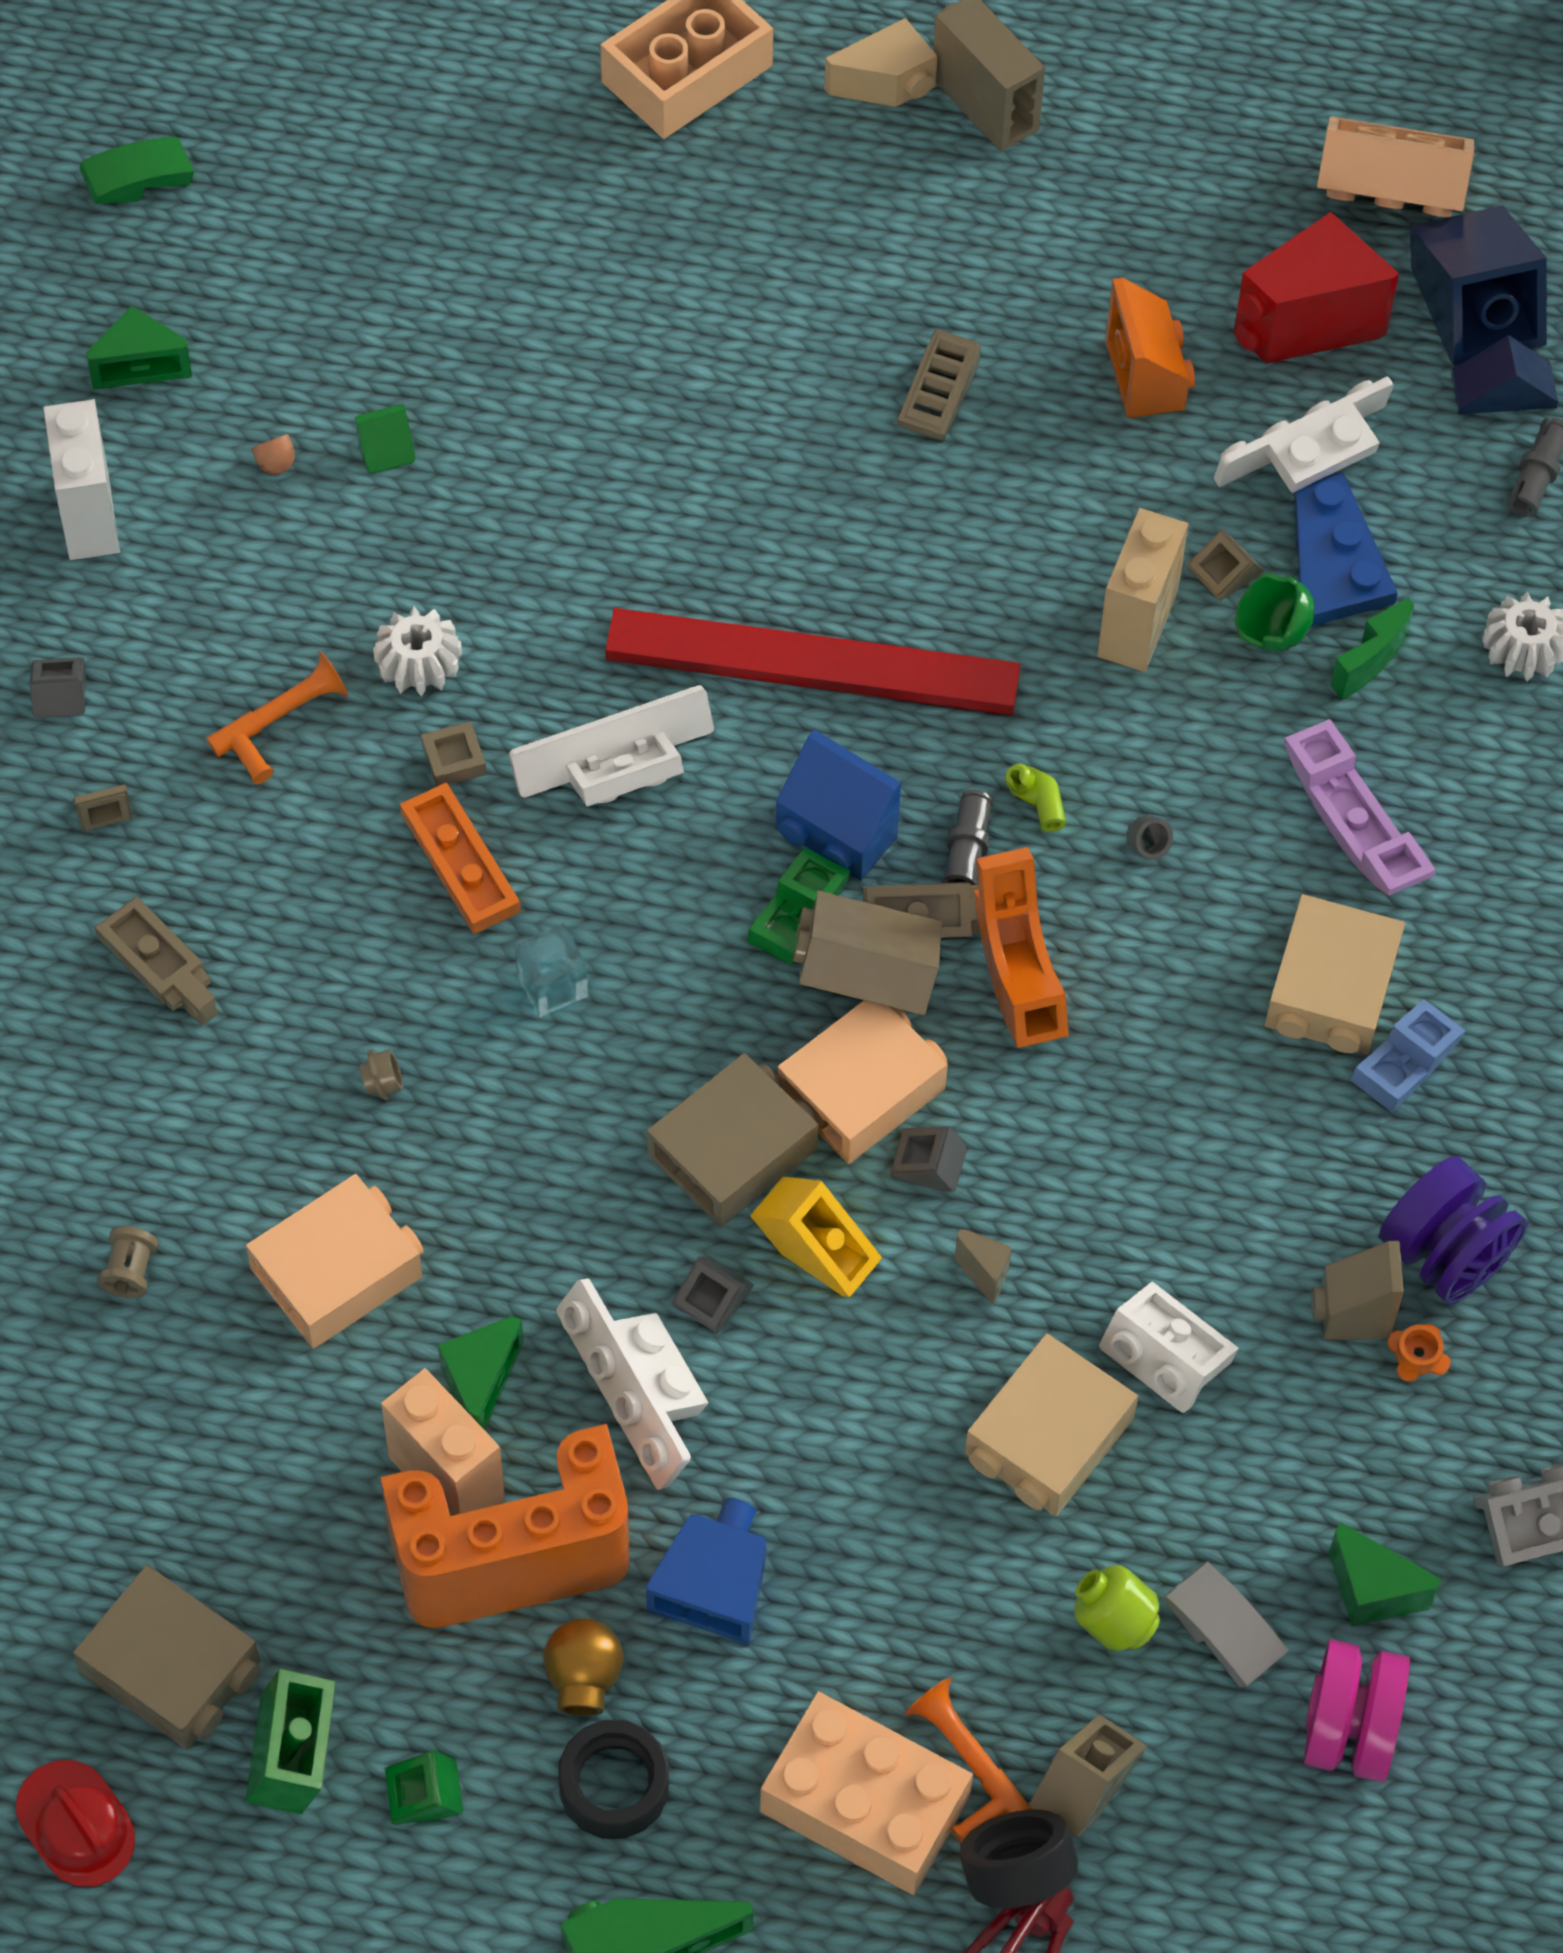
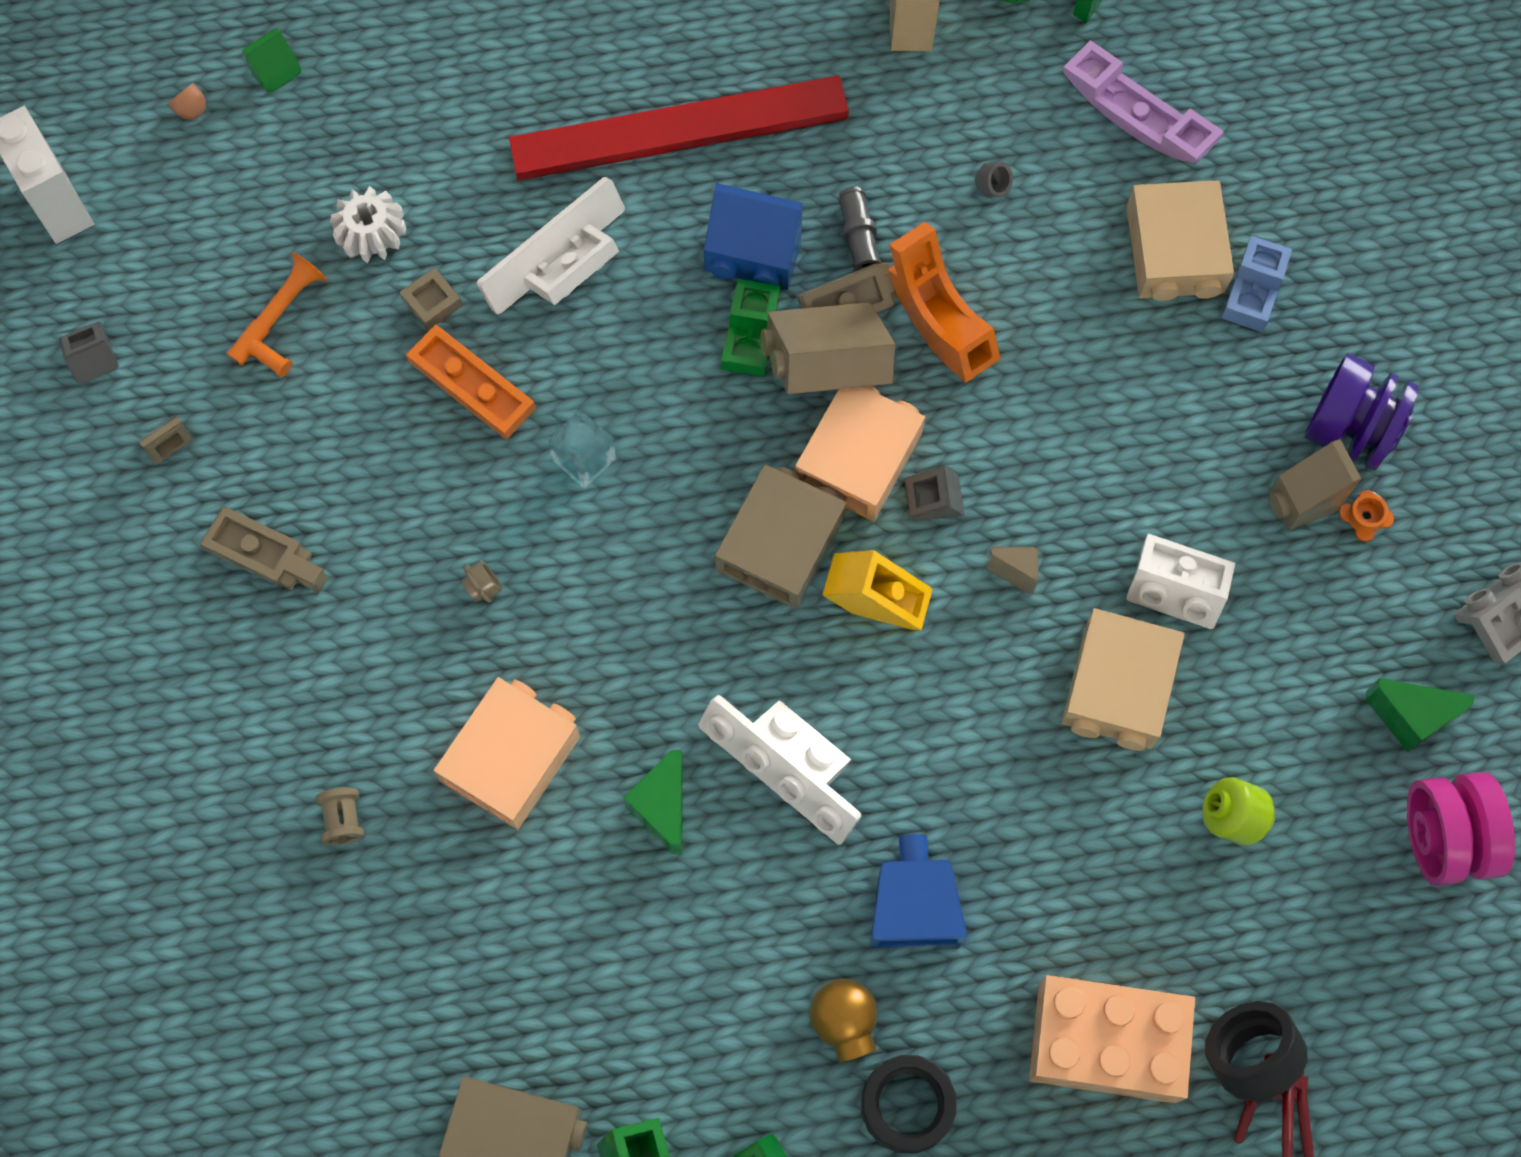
camera: 20 degrees left, 10 degrees up
(137, 353) = (44, 55): green slope -> none
(438, 1436) = (666, 886): light nougat brick -> none
(514, 1550) = (800, 923): orange windscreen -> none
(711, 1293) = (814, 667): dark grey slope -> none
(938, 1709) = (1216, 998): orange piece -> none
(1039, 791) = (897, 172): lime arm -> none
(1087, 1773) = (1273, 955): dark tan slope -> none
(1226, 1622) = (1320, 788): light grey slope -> none

